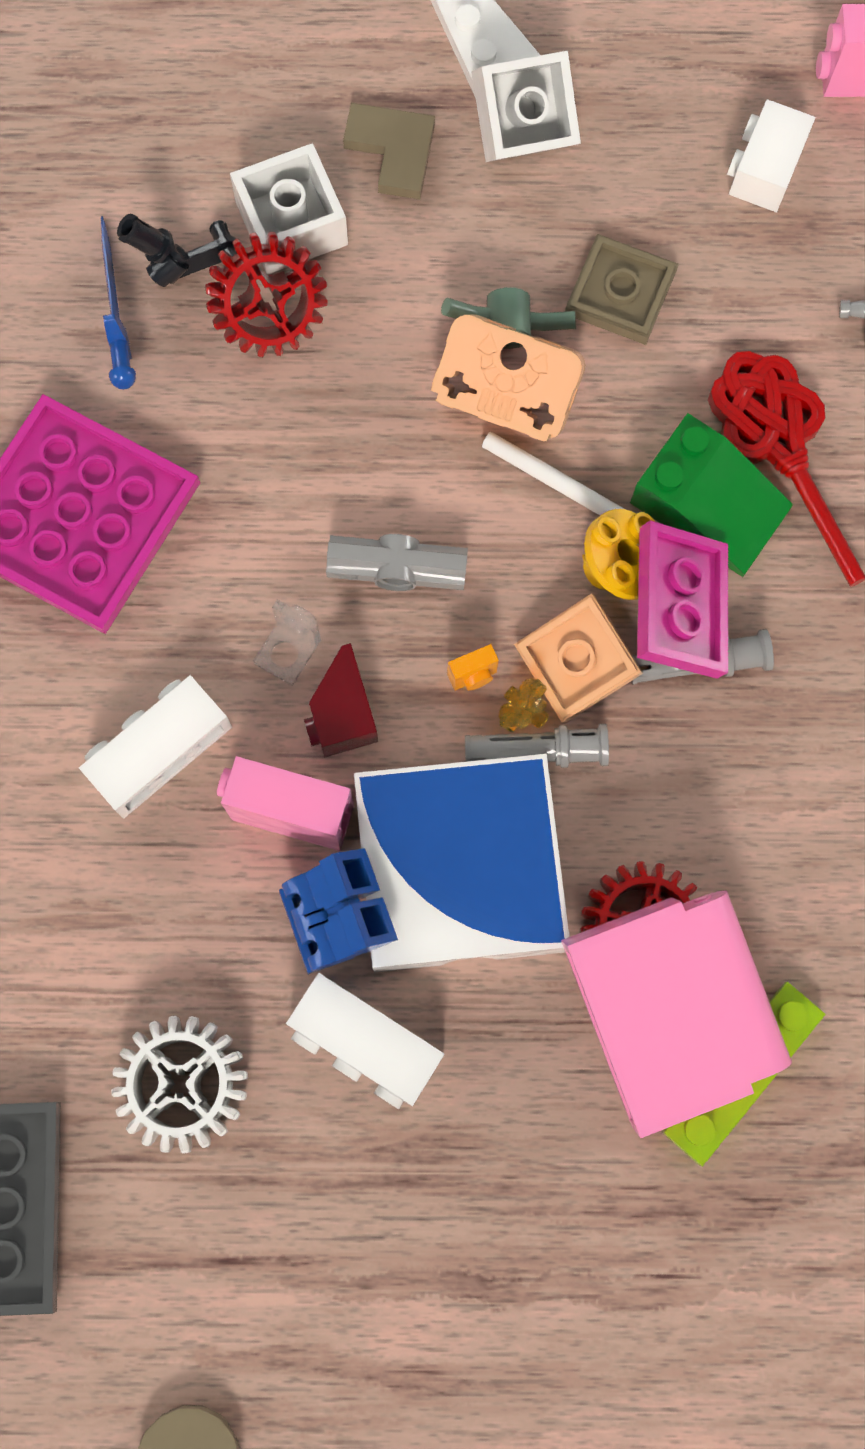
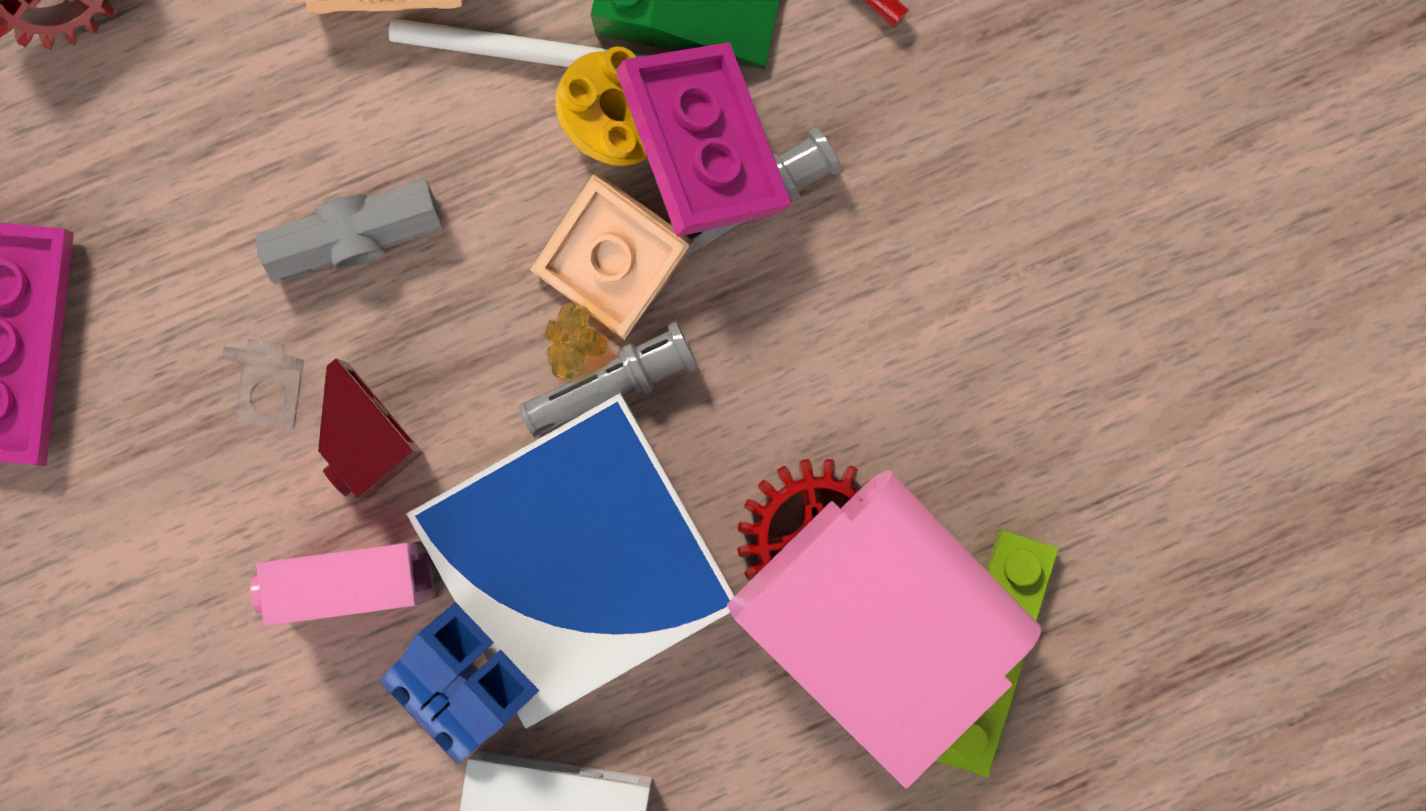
camera: 20 degrees left, 10 degrees up
(155, 745) = (163, 576): white brick -> none
(473, 669) = (494, 323): light orange plate -> none

